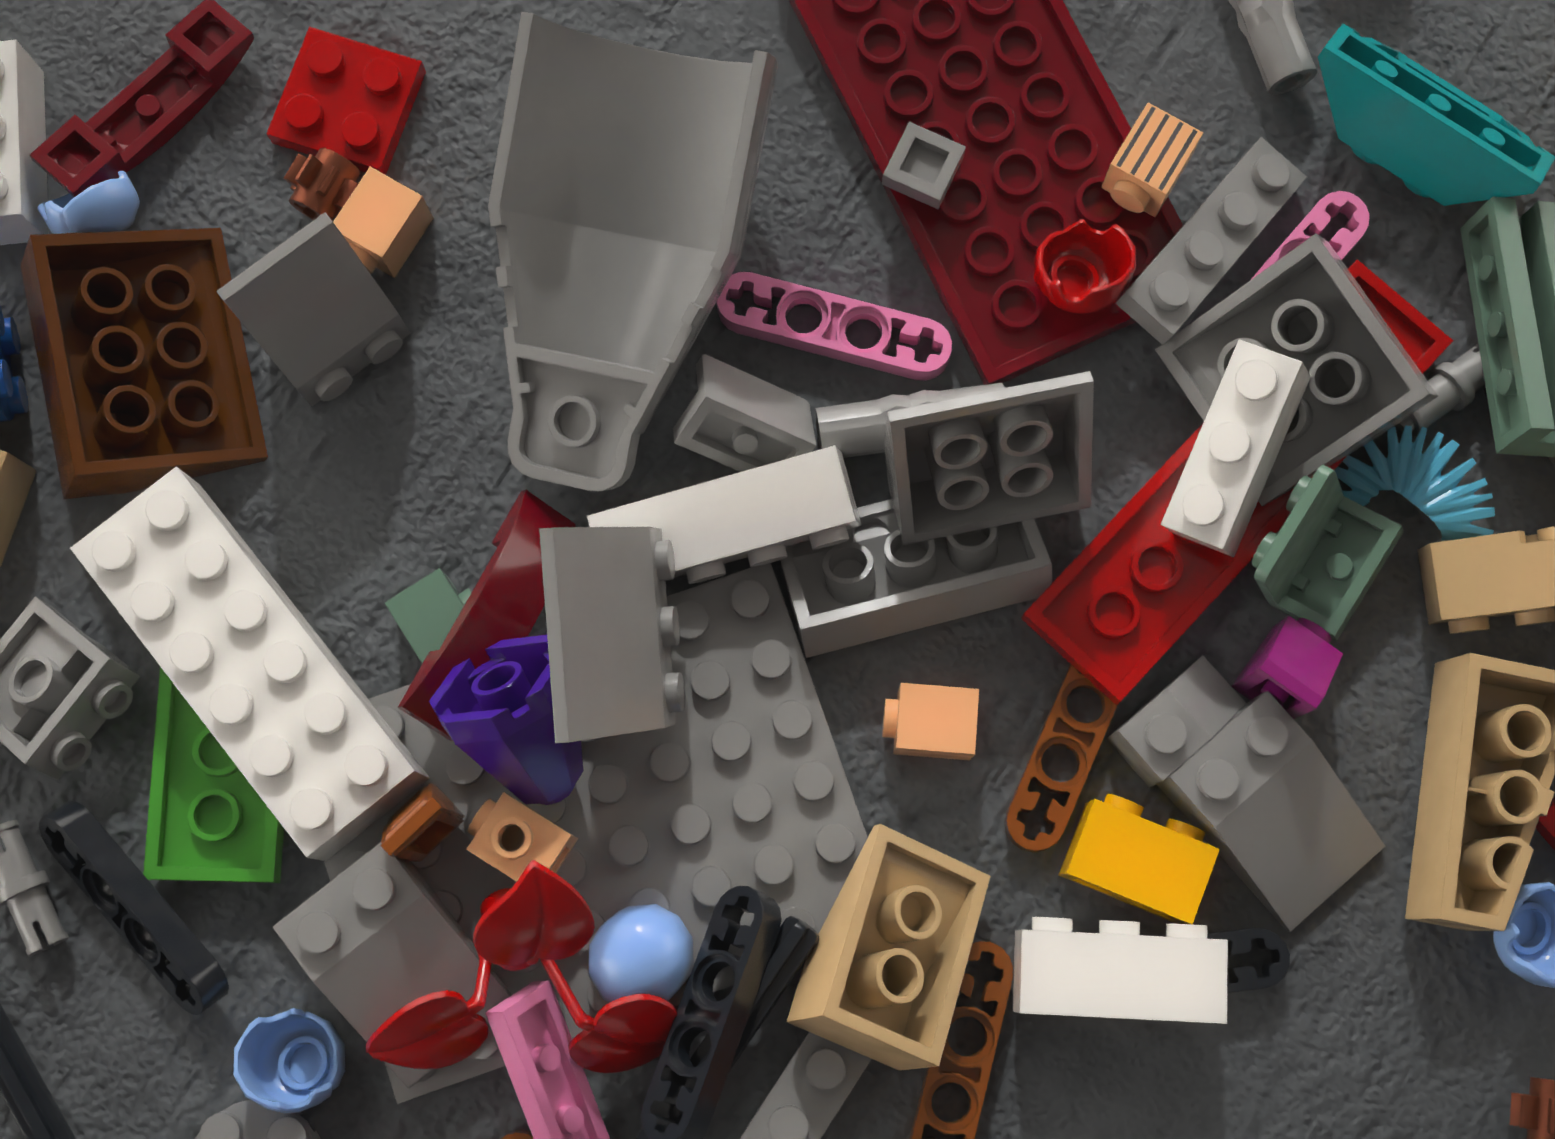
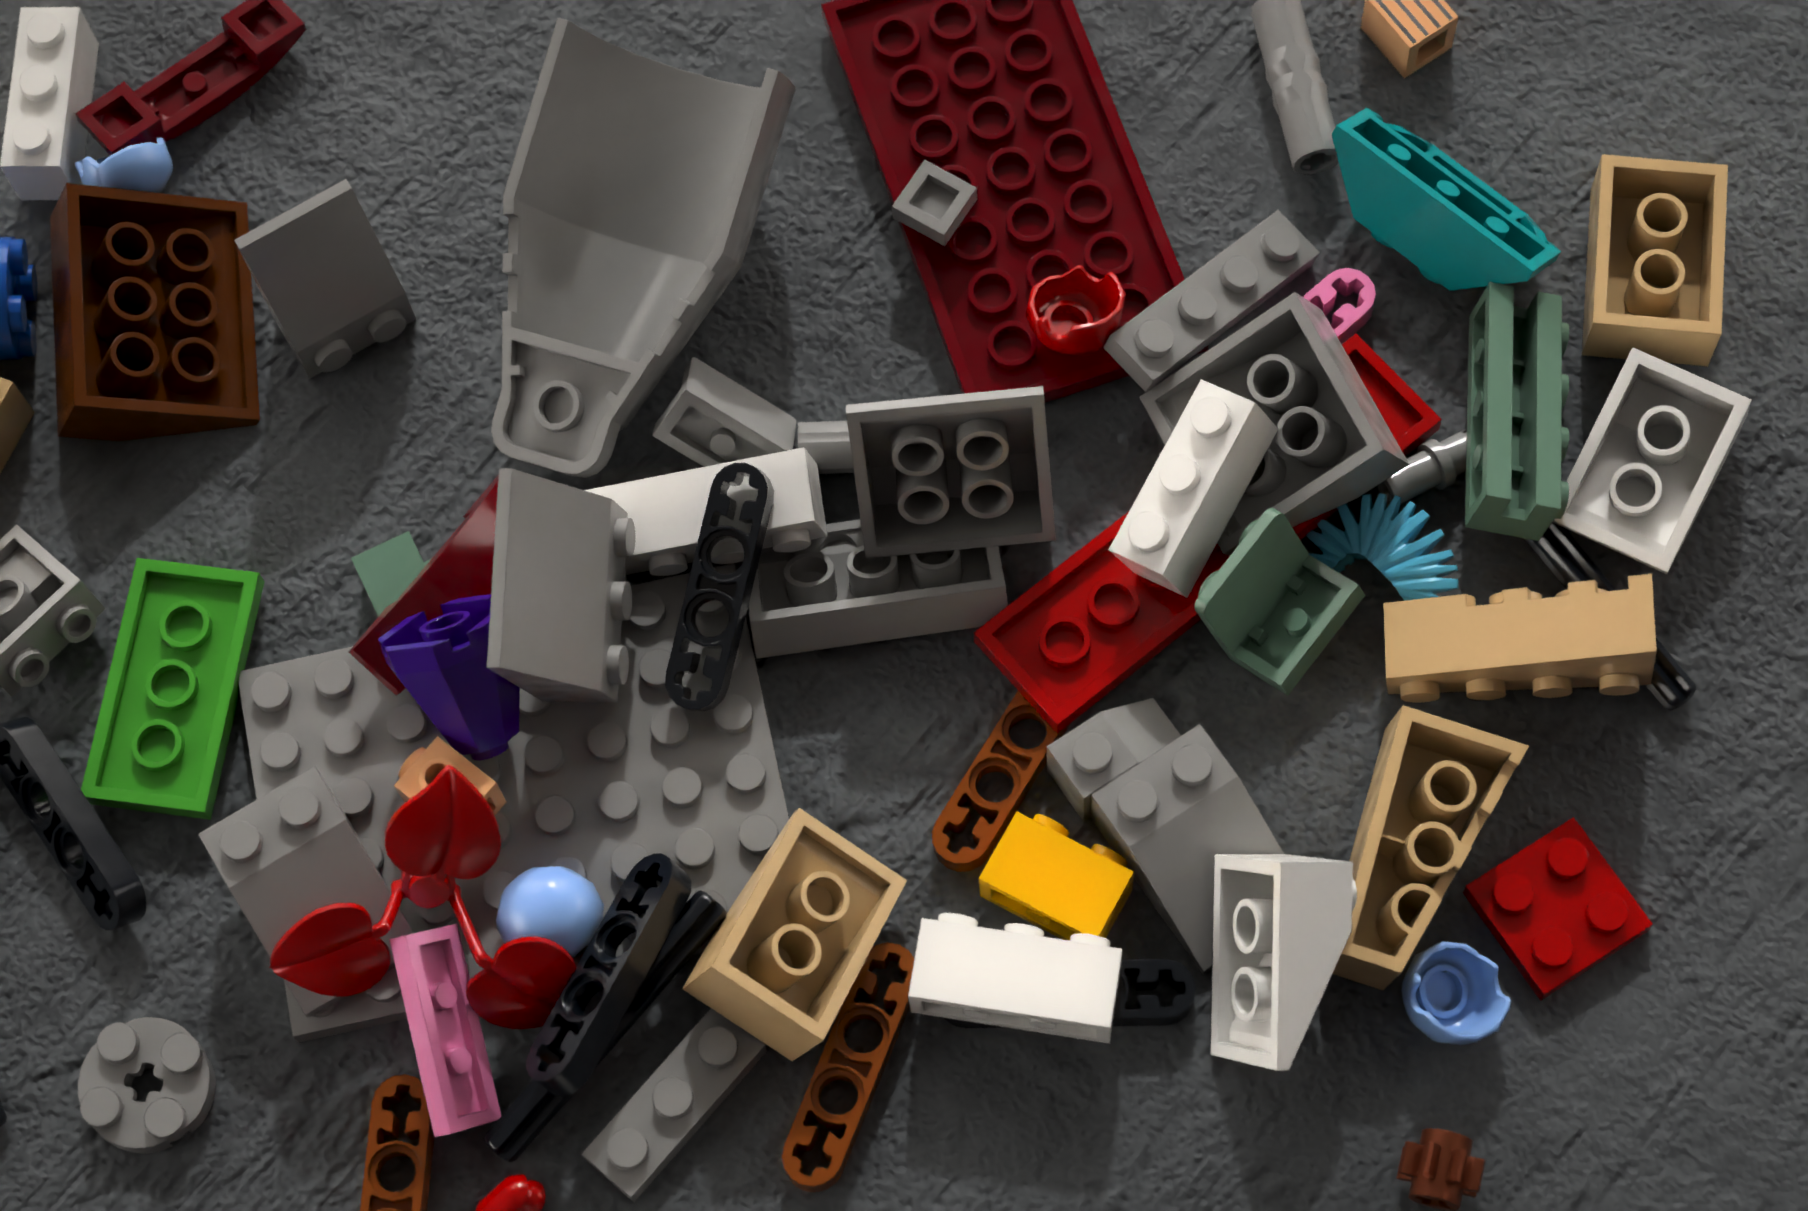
camera: 10 degrees right, 10 degrees down
(250, 665) = (215, 601): white brick -> none
(289, 1061) = (194, 980): light blue hair -> none
(321, 183) = (356, 161): copper gear -> none
(346, 100) = (386, 97): red plate -> none
(383, 222) = (405, 209): light nougat brick -> none
(420, 824) = (355, 763): dark orange slope -> none
(759, 598) = (708, 585): none -> black beam
(836, 315) = (834, 342): bright pink beam -> none
(932, 721) = (871, 729): light nougat brick -> none
(1150, 161) = (1157, 218): light nougat brick -> none
(1292, 665) = (1233, 708): magenta slope -> none
(1376, 921) = (1274, 950): none -> white slope

